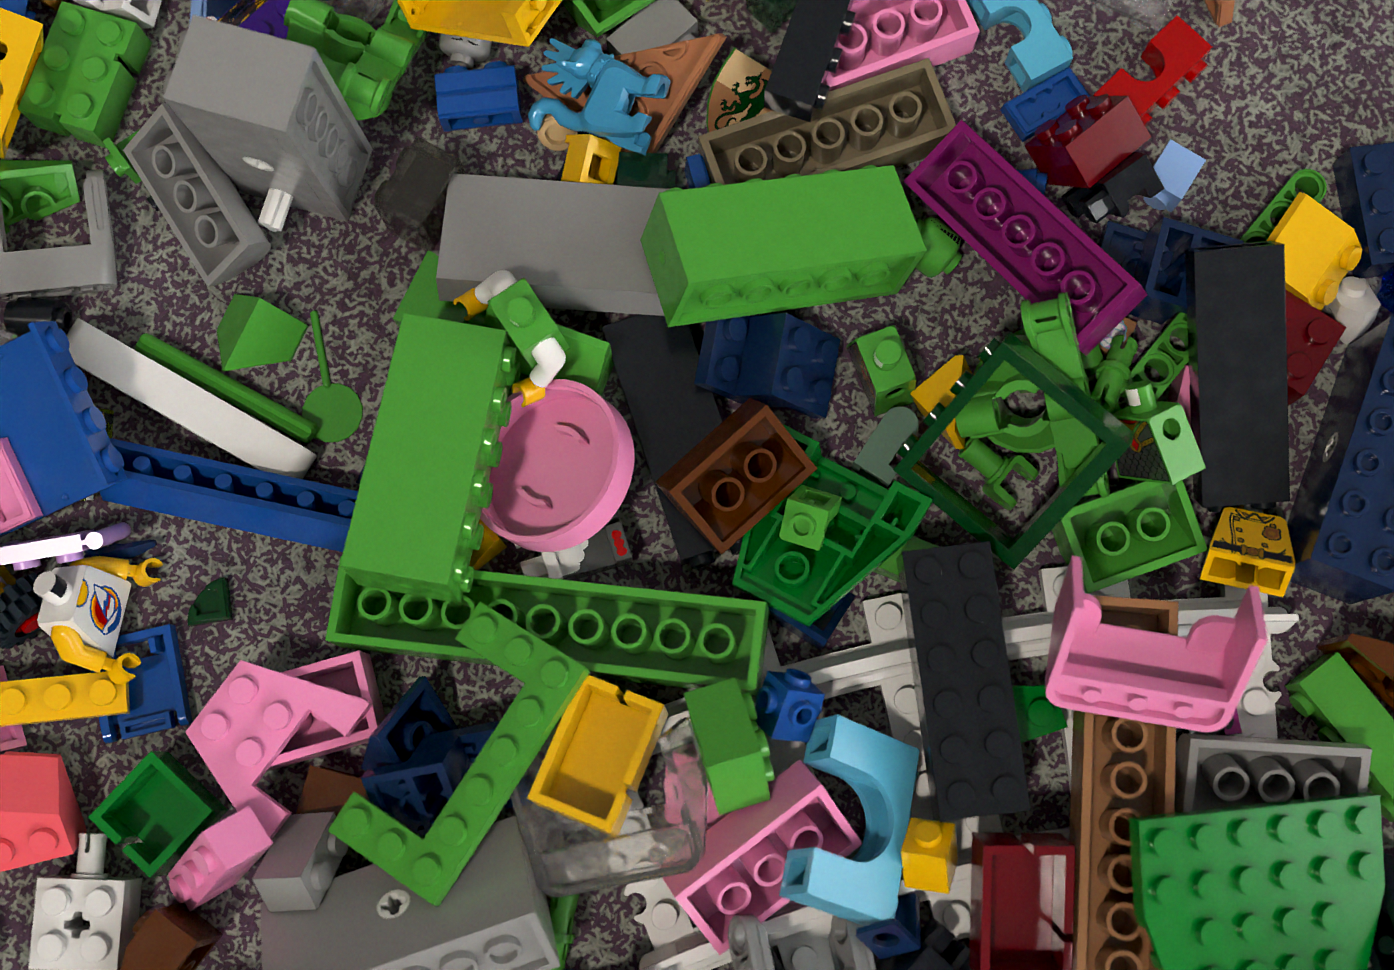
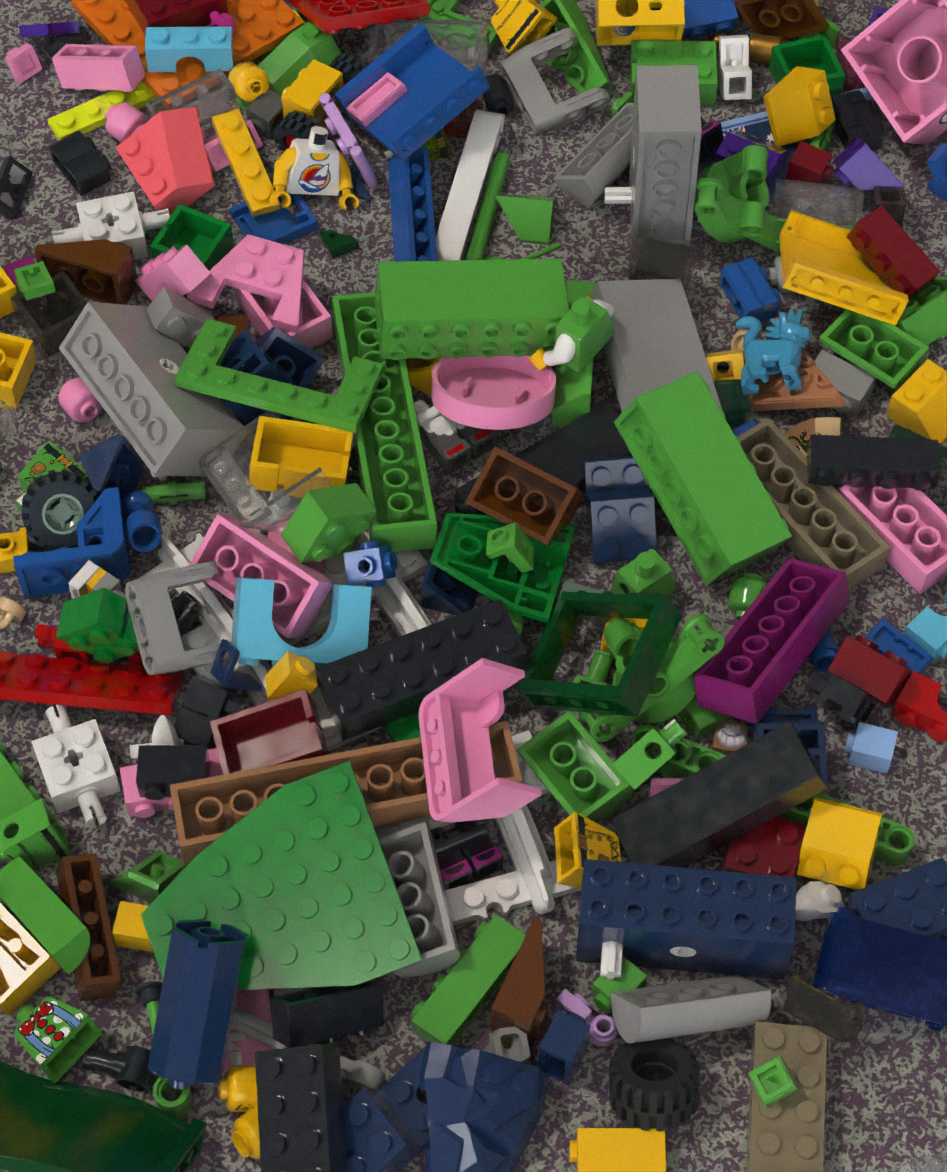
camera: 70 degrees right, 20 degrees down
(1114, 372) = (696, 728): bright green pin -> none

